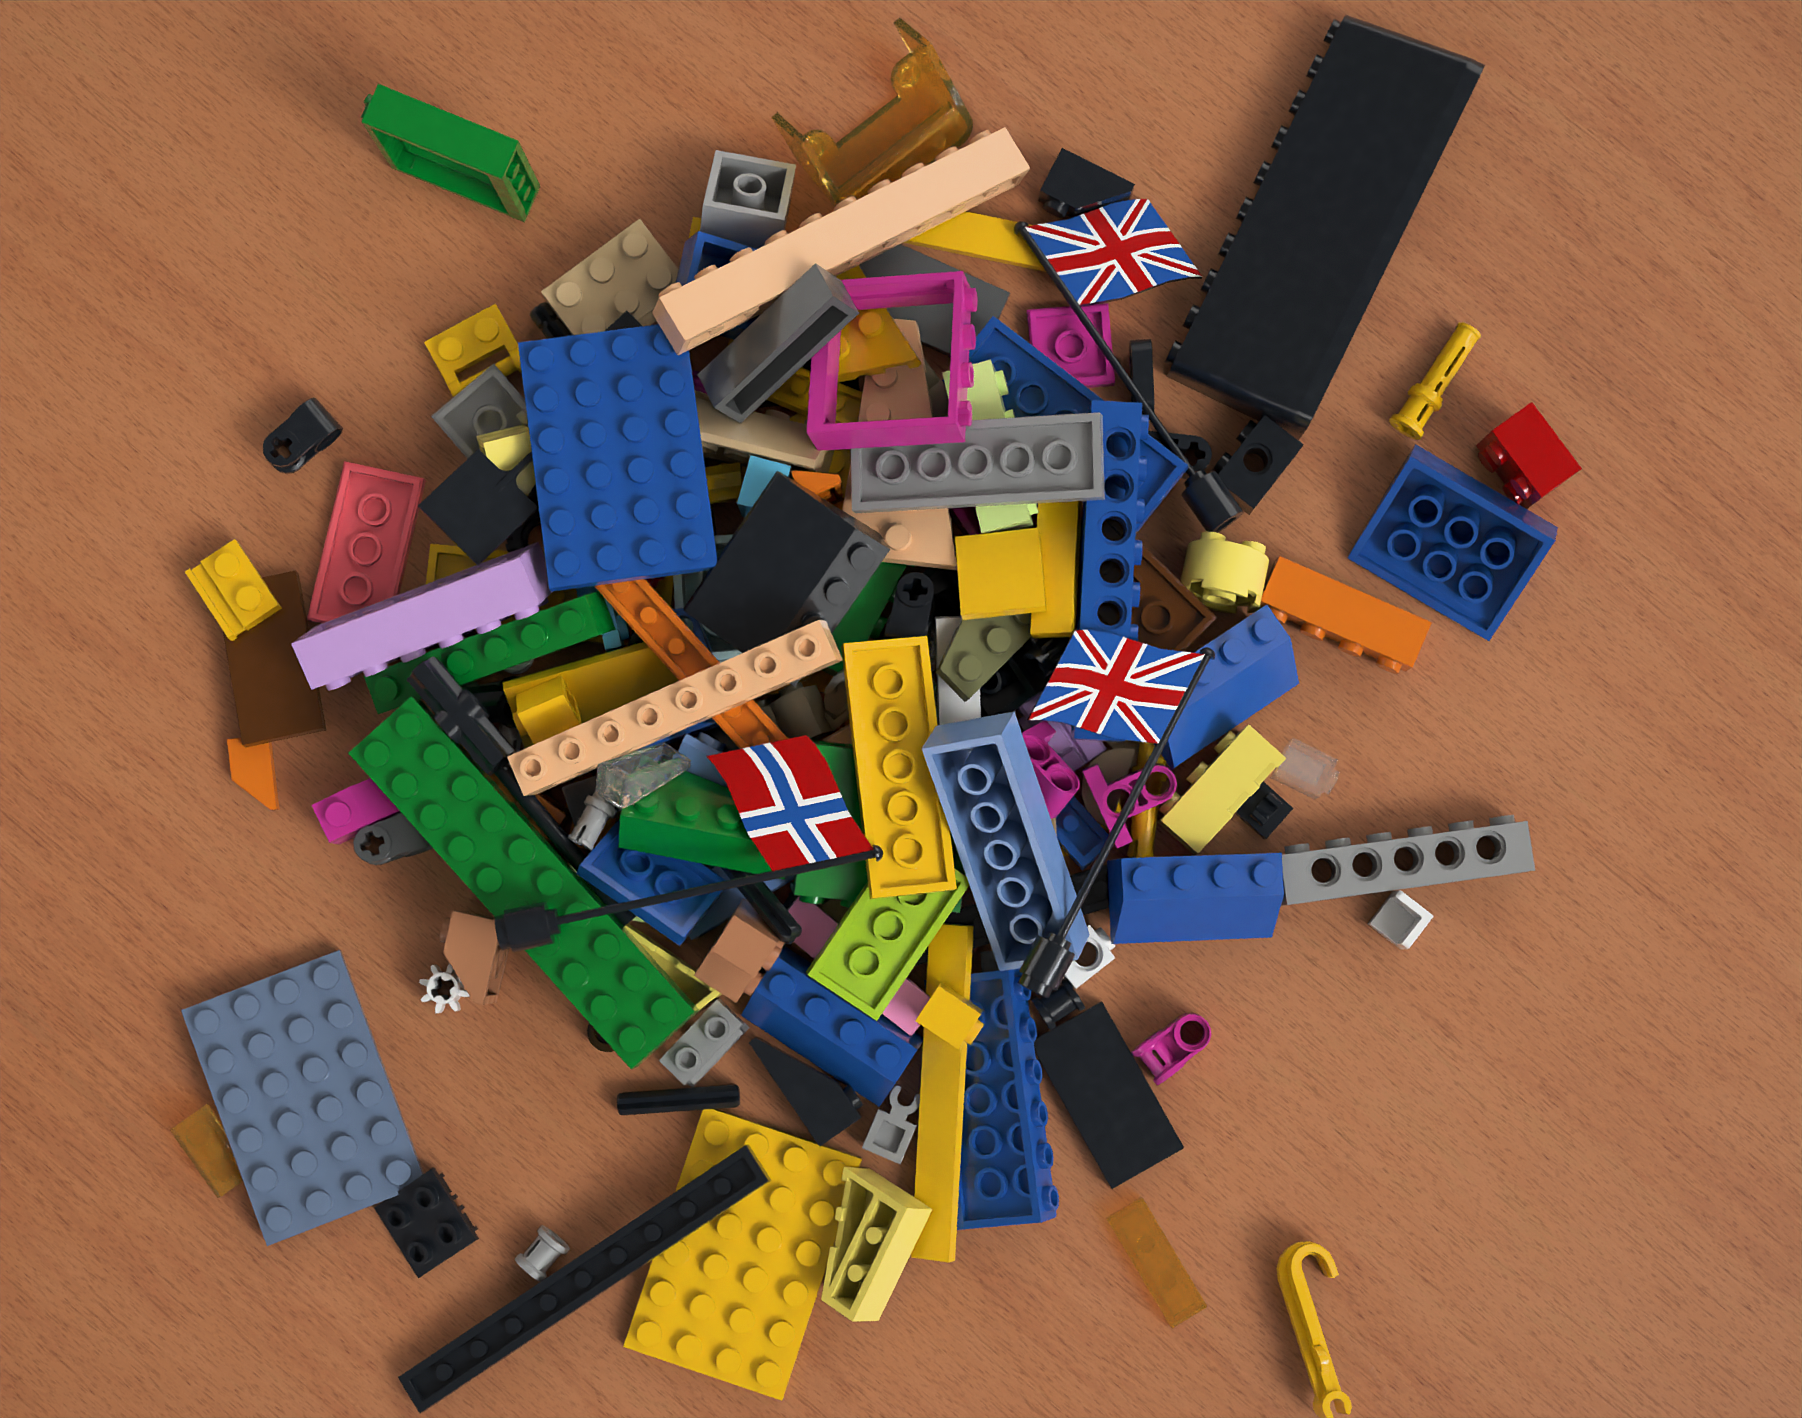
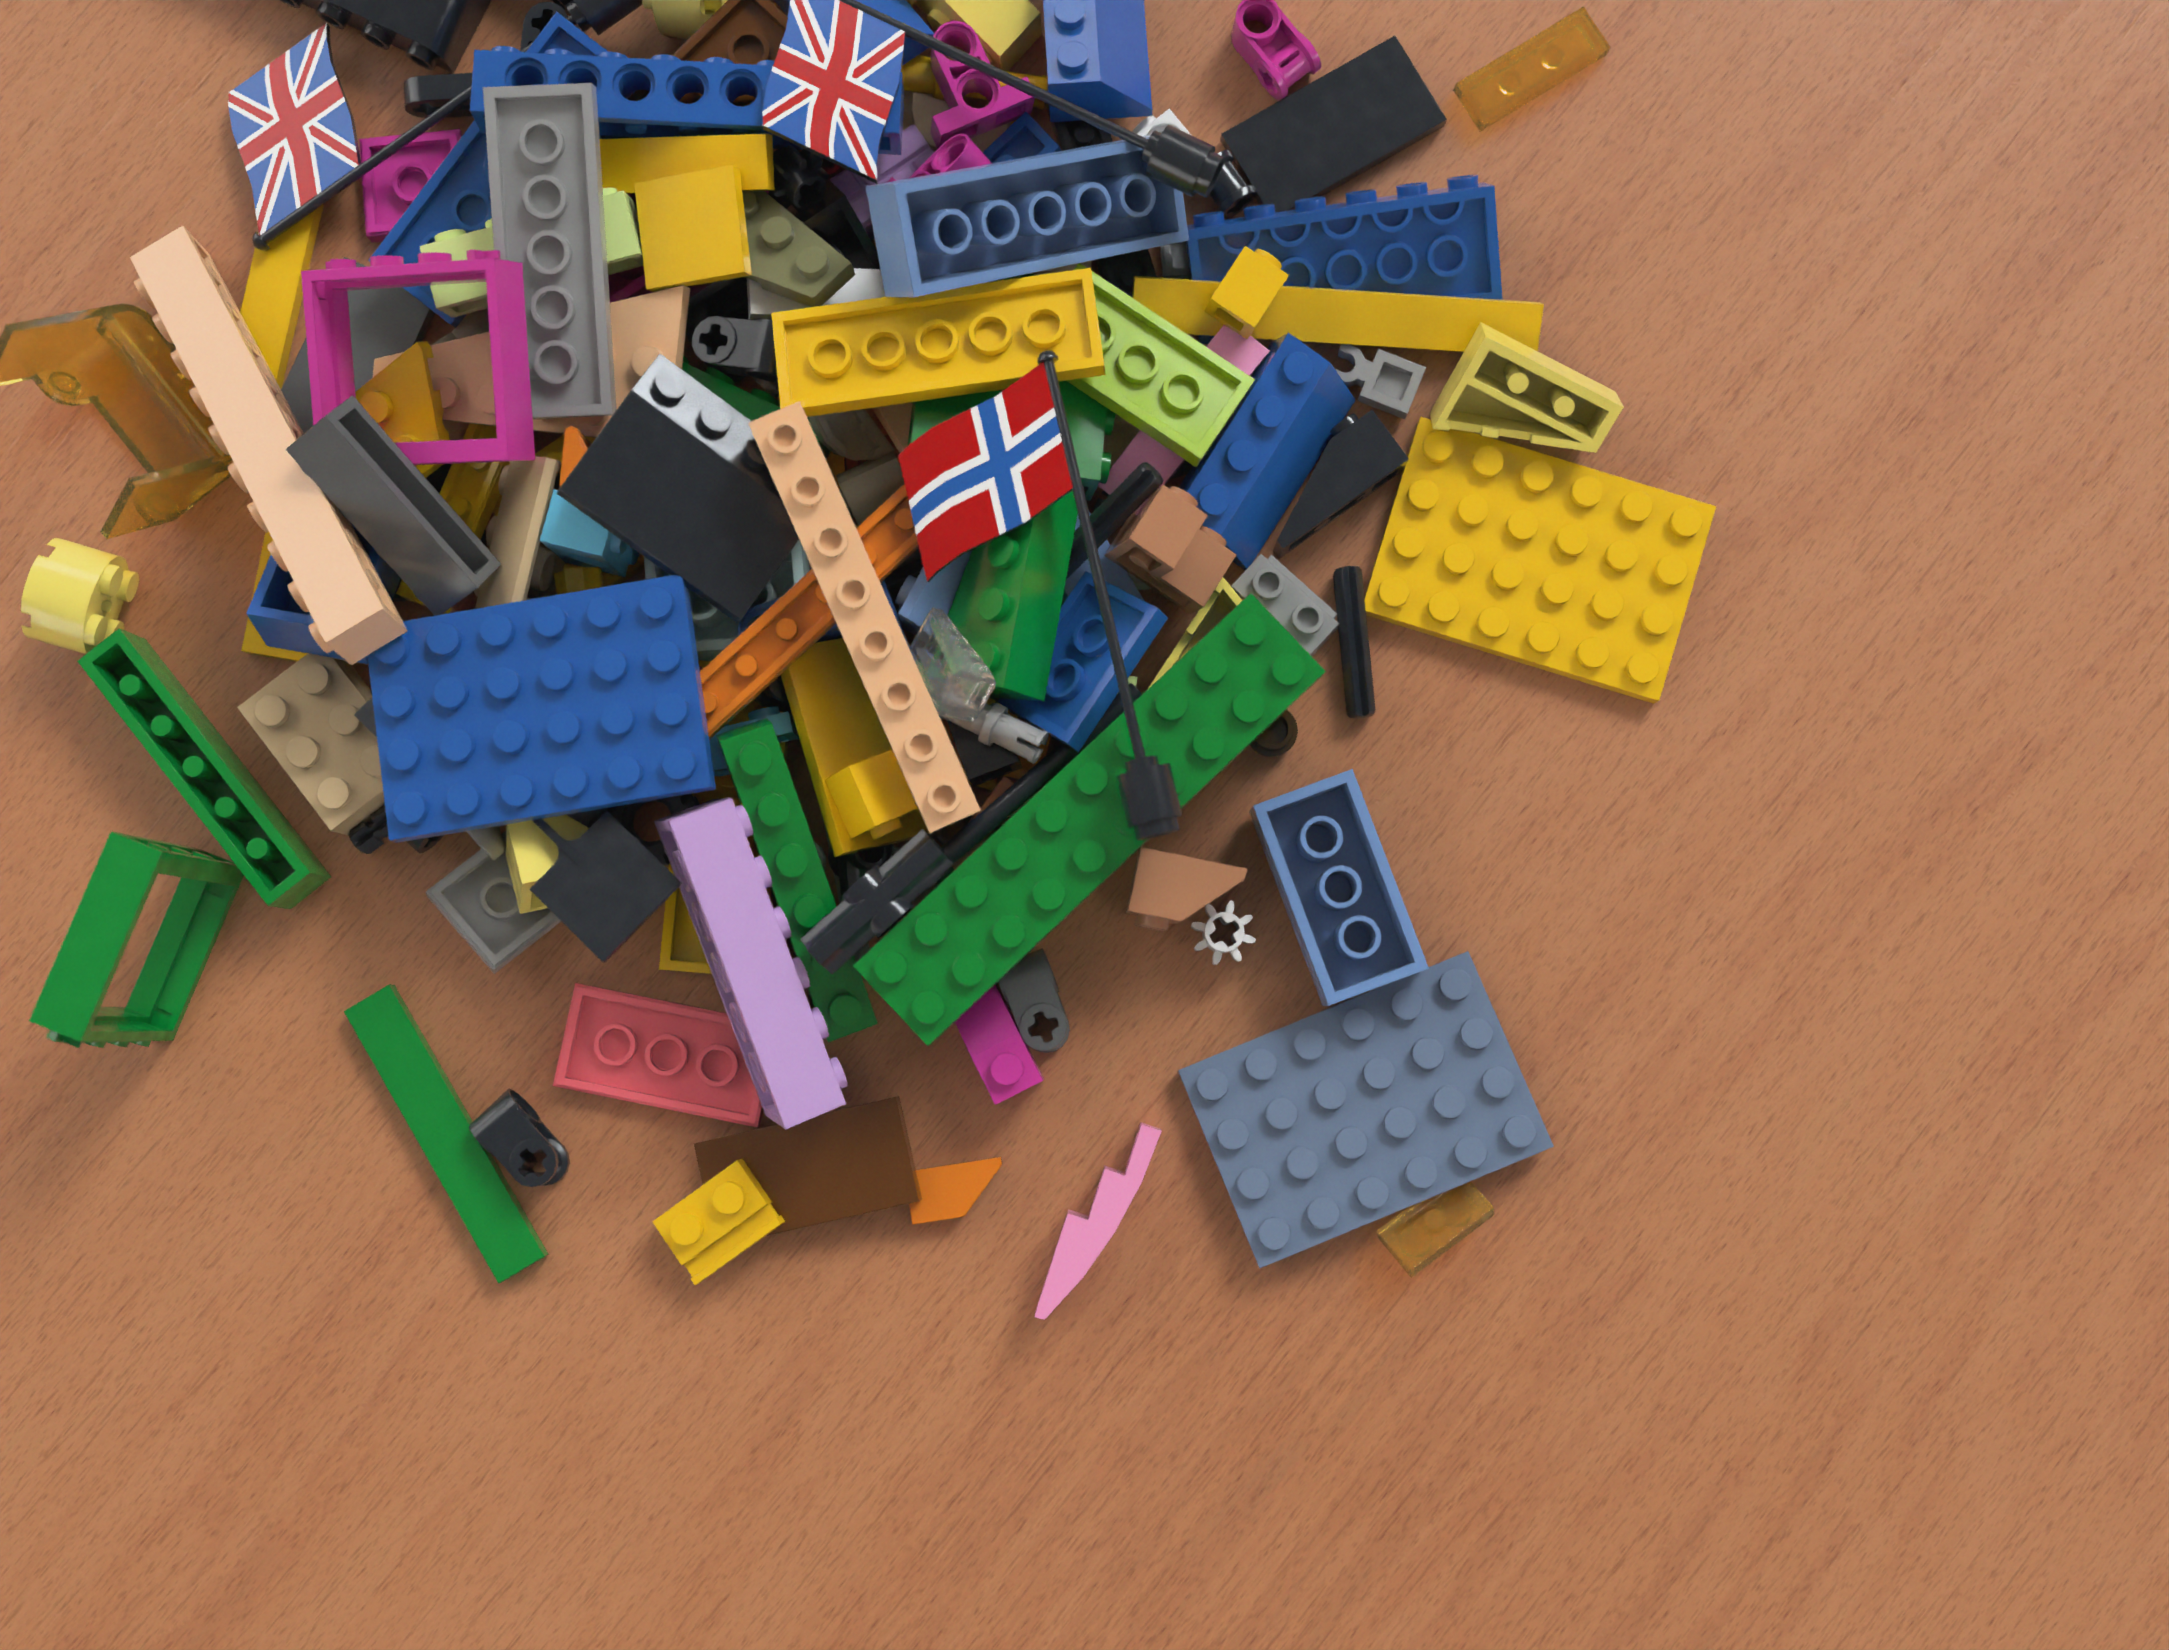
camera: 90 degrees left, 0 degrees up
(214, 876) = (1087, 1235): none -> bright pink slope
(311, 378) = (444, 1134): none -> green tile
(427, 1222) = (1516, 947): black hinge -> none
(472, 343) = (400, 925): yellow plate -> none
(474, 1079) = (1338, 888): none -> medium blue brick
(542, 1253) = (1549, 803): light grey bush -> none
(584, 1278) = (1580, 746): black plate -> none
(595, 192) = (204, 769): none -> green brick
(731, 92) = (76, 595): none -> light yellow brick
(747, 198) = (211, 571): light grey brick -> none
(1080, 186) = (208, 170): black slope -> none

